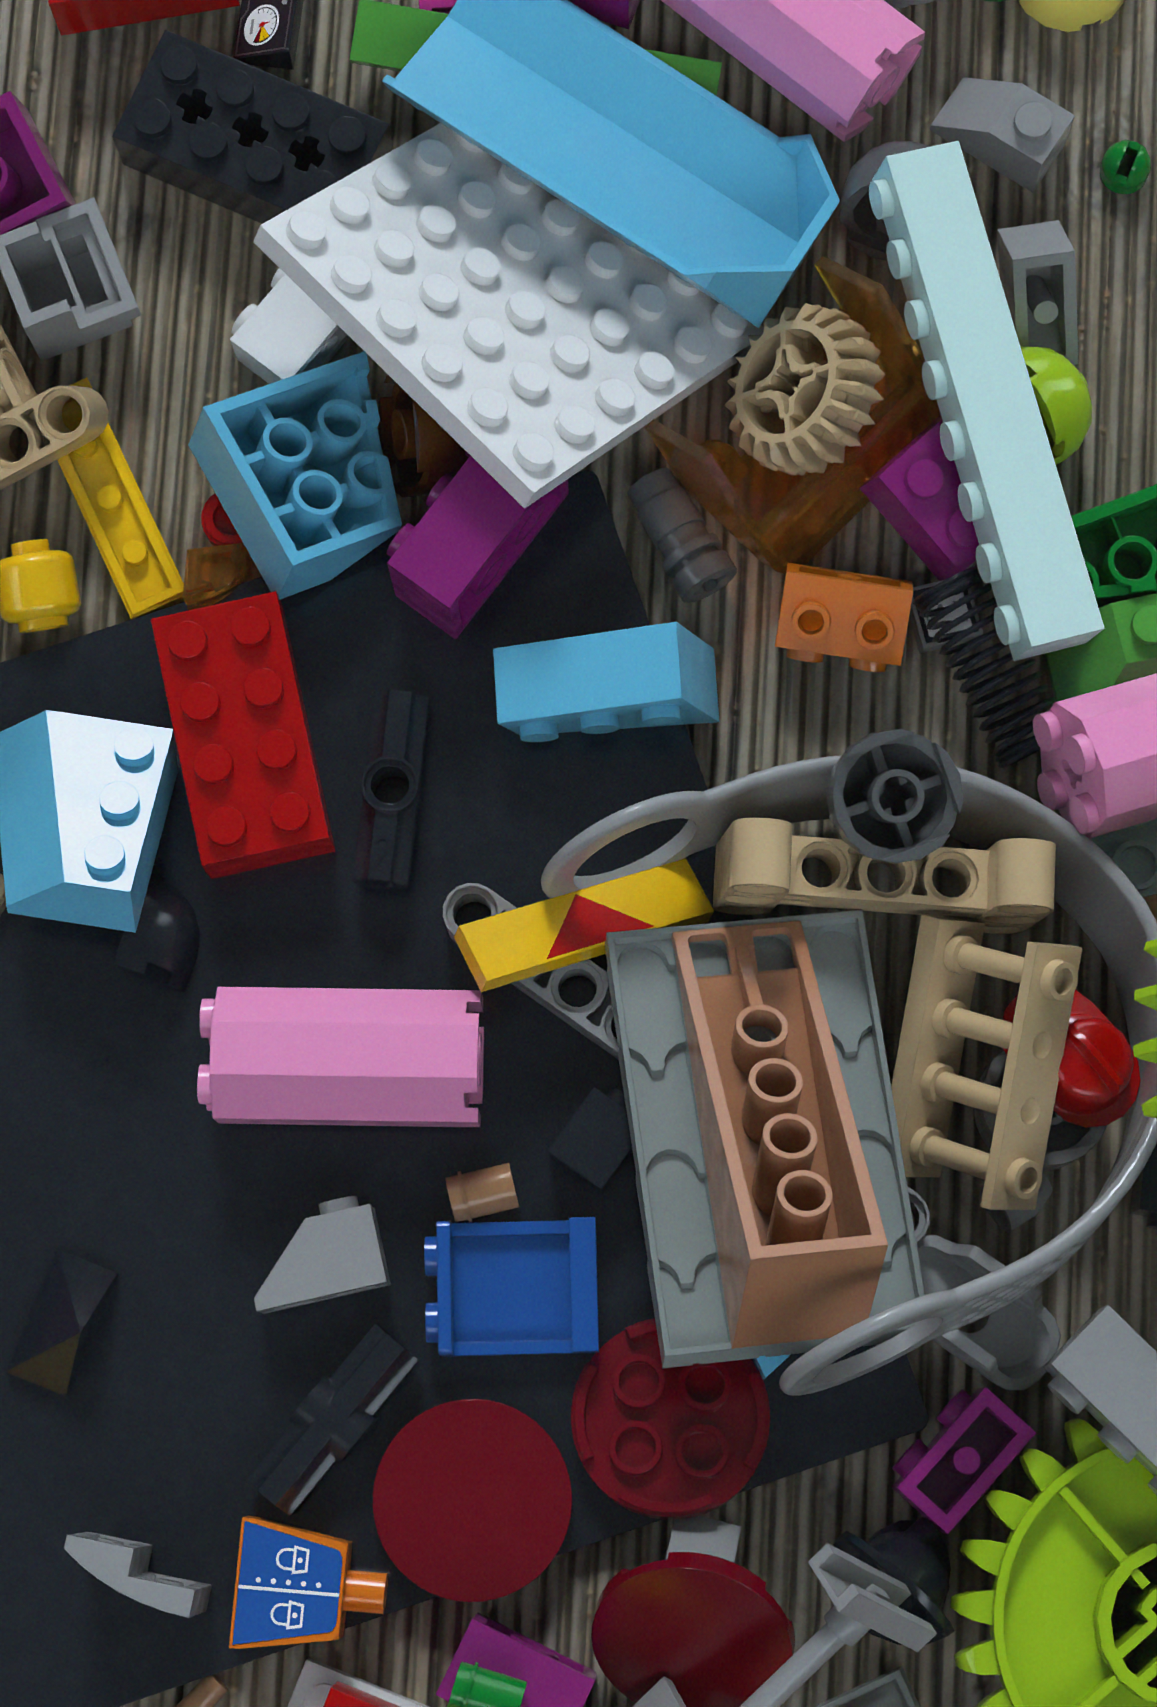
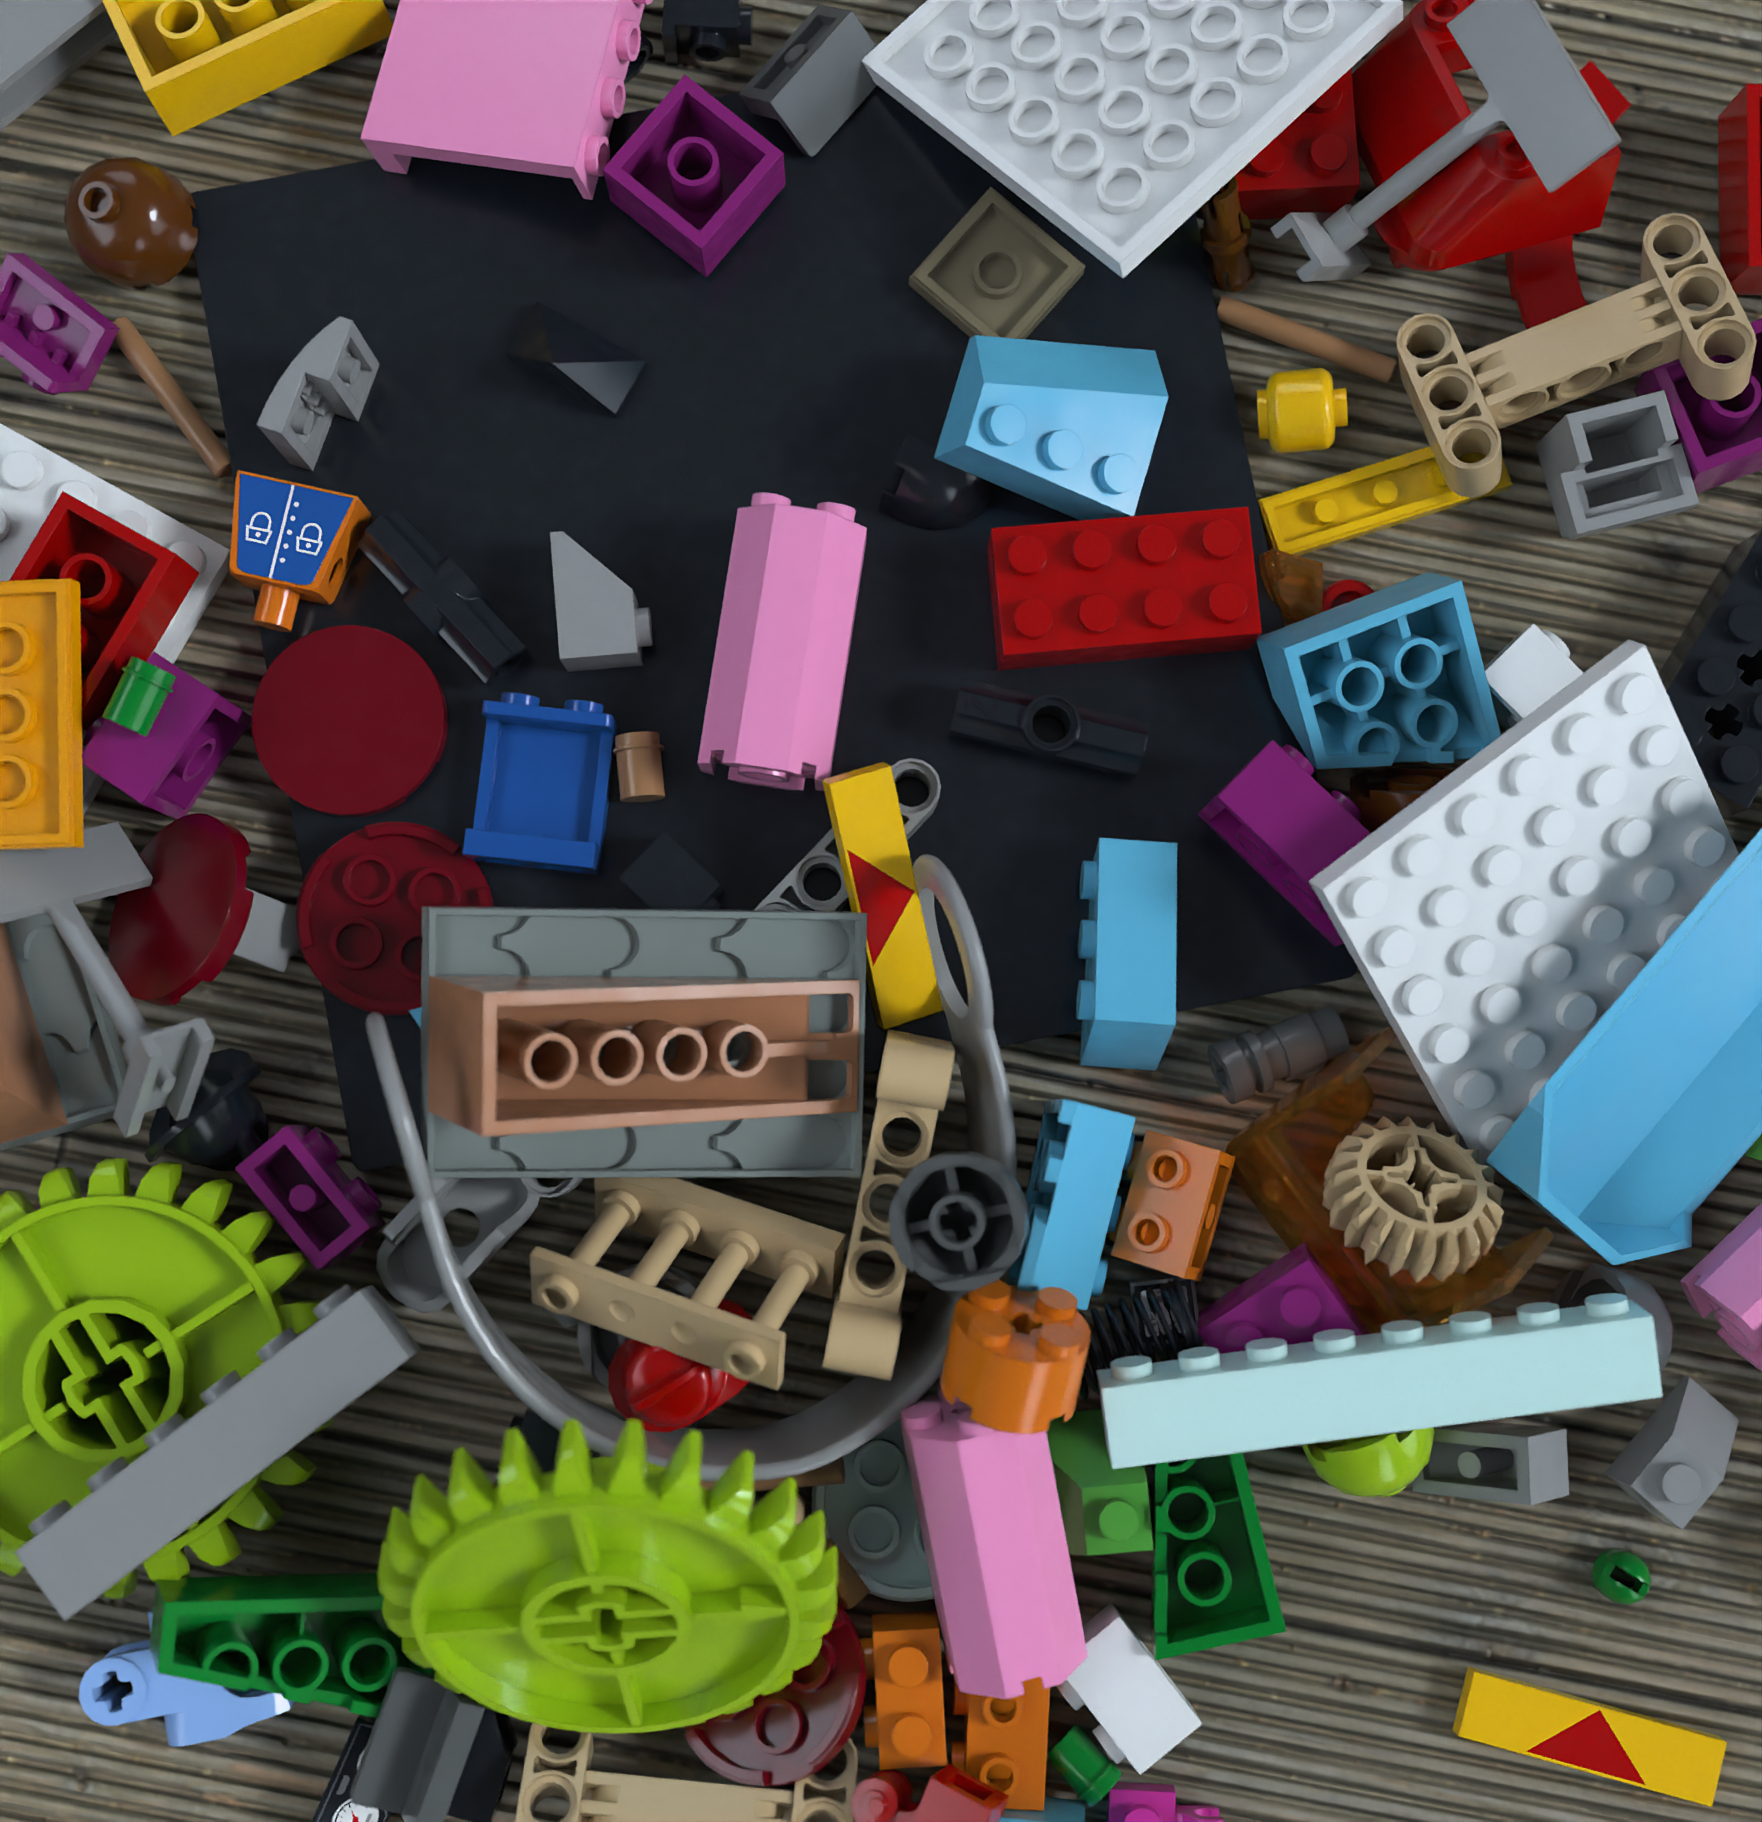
camera: 85 degrees right, 5 degrees up
(827, 705) = (1073, 1198): none -> medium azure wedge
(1014, 728) = (1016, 1356): none -> orange brick

